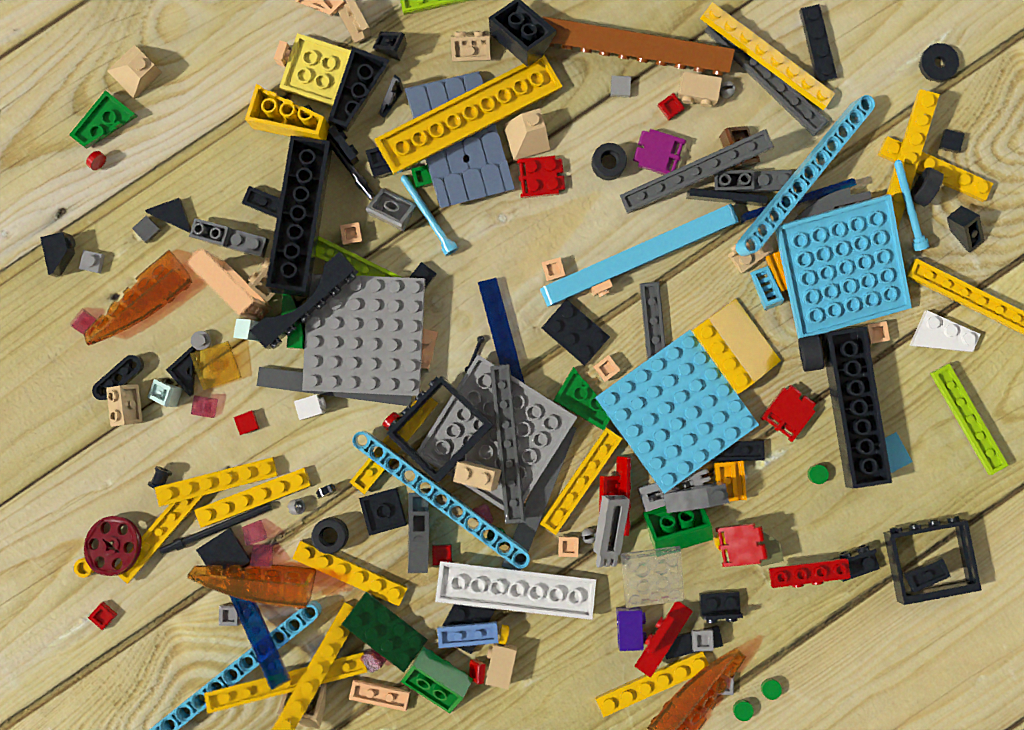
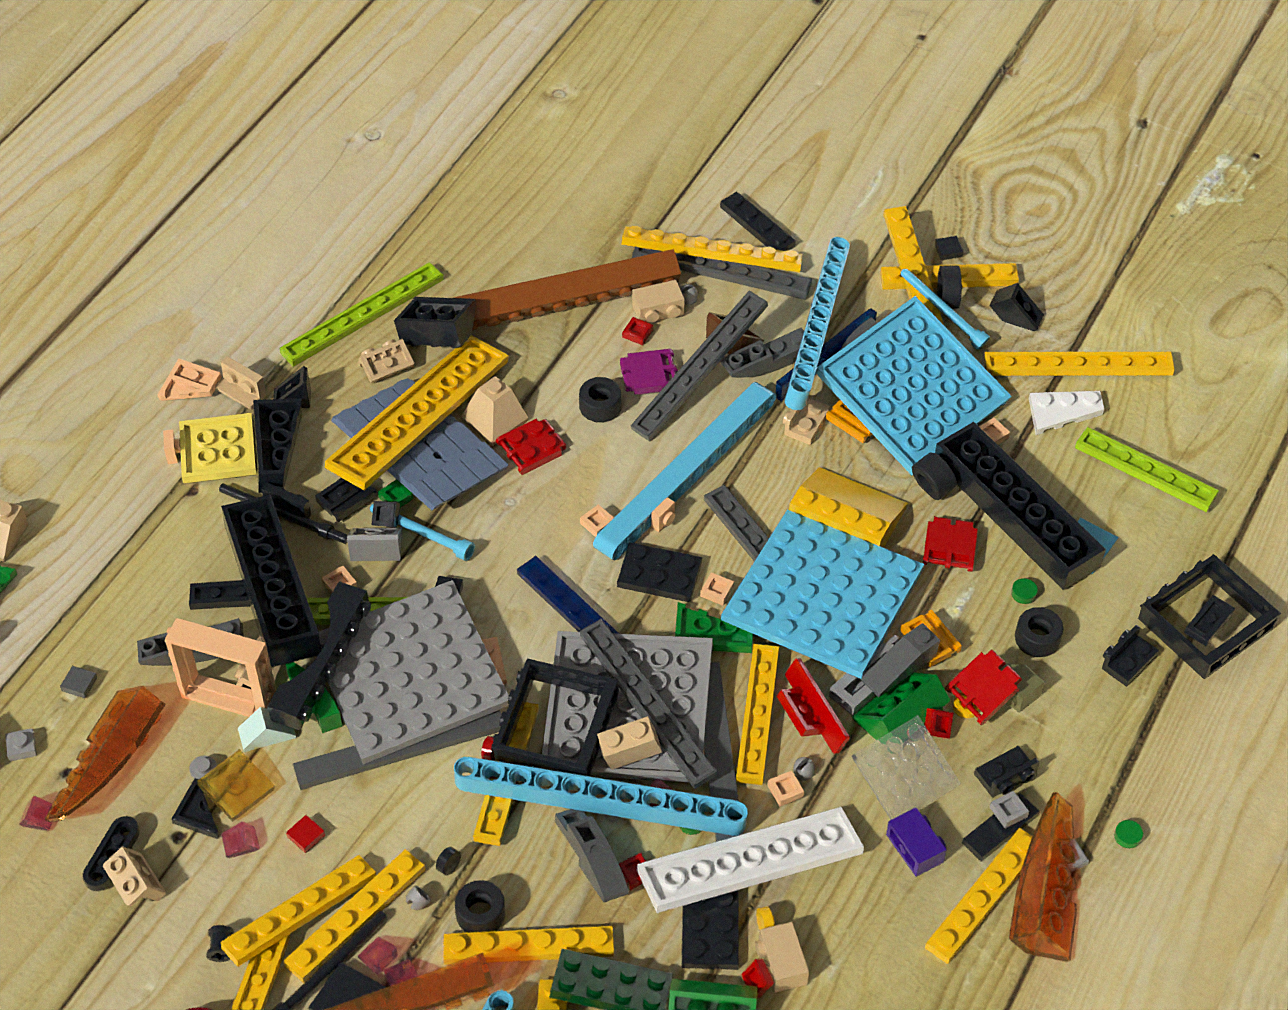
camera: 25 degrees left, 35 degrees down
(165, 393) = (182, 843): light aqua slope -> none
(172, 213) = (104, 653): black tile -> none
(283, 117) = (199, 499): yellow wedge -> none
(310, 407) = (380, 777): white brick -> none
(383, 511) = (533, 856): black tile -> none
(392, 95) = (320, 432): black tile -> none
(407, 191) = (385, 514): none -> black tile
(467, 634) = (720, 932): medium blue plate -> none
(480, 339) = (552, 625): black hinge -> none
(611, 520) = (824, 740): light grey hinge -> none
(620, 86) = (572, 334): light grey tile -> none
(663, 639) = (961, 830): red bracket -> none
(695, 551) = (939, 723): none -> red tile
(726, 197) = (739, 382): black tile -> none
(742, 452) = (934, 598): black tile -> none
(743, 710) = (1112, 873): green tile -> none
(760, 290) = (857, 454): medium azure slope -> none
(809, 573) = (1081, 684): red bracket -> none
(817, 521) = (1040, 619): none -> black tyre
(946, 55) = (889, 183): black tile -> none

